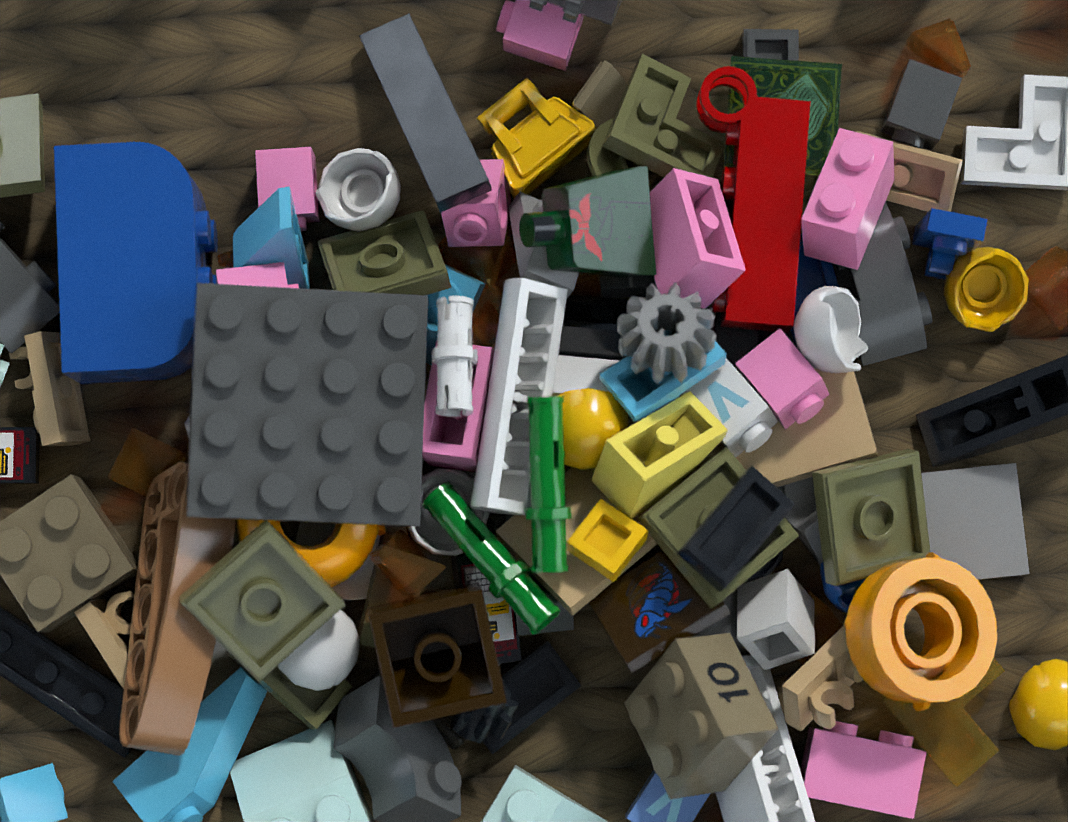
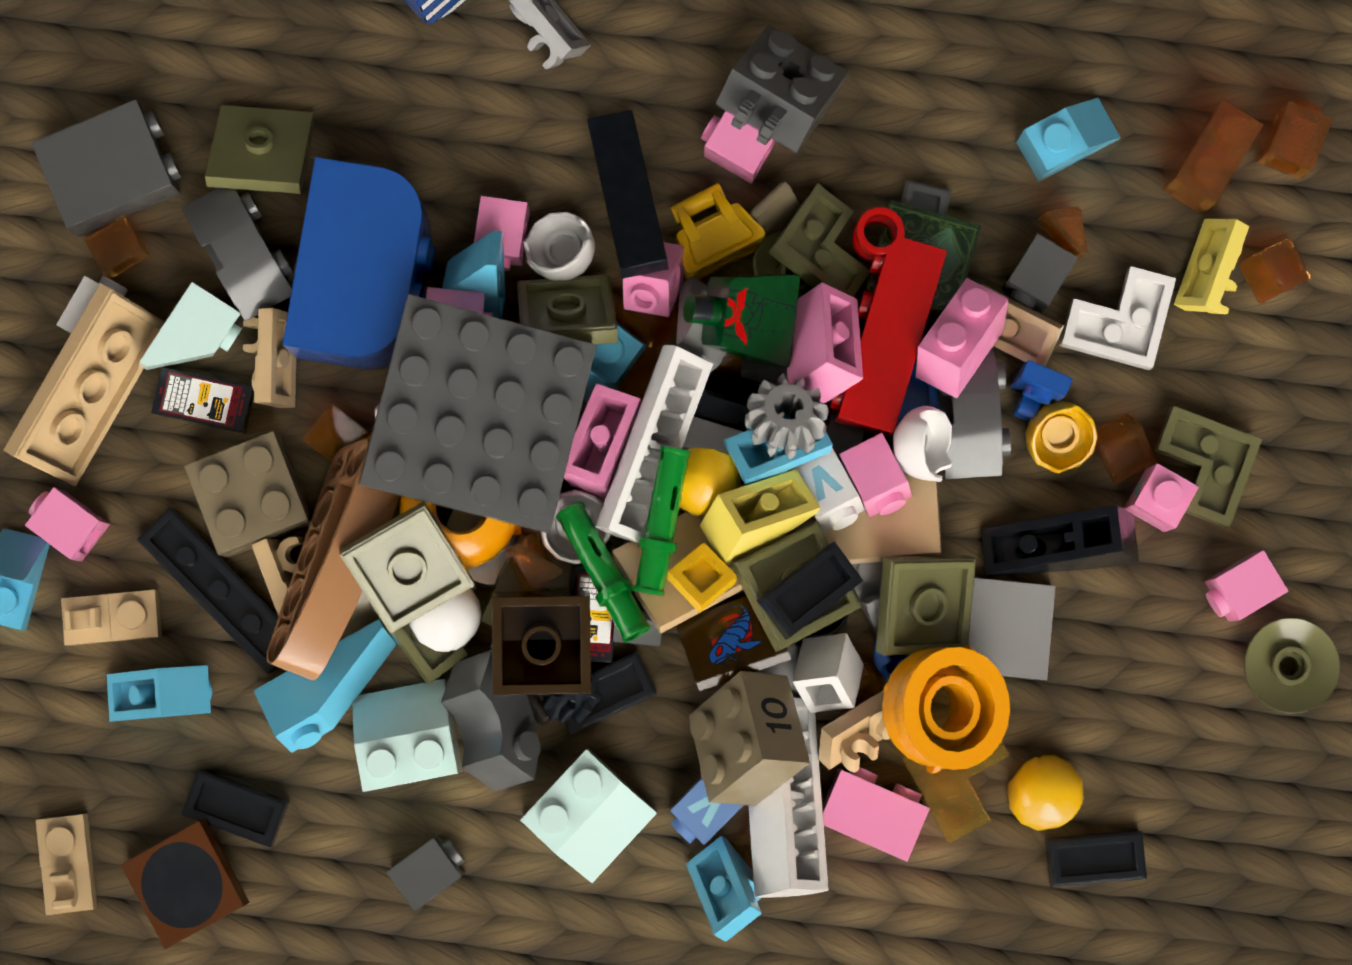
camera: 10 degrees right, 0 degrees up
(454, 356) = (608, 399): white pin -> none

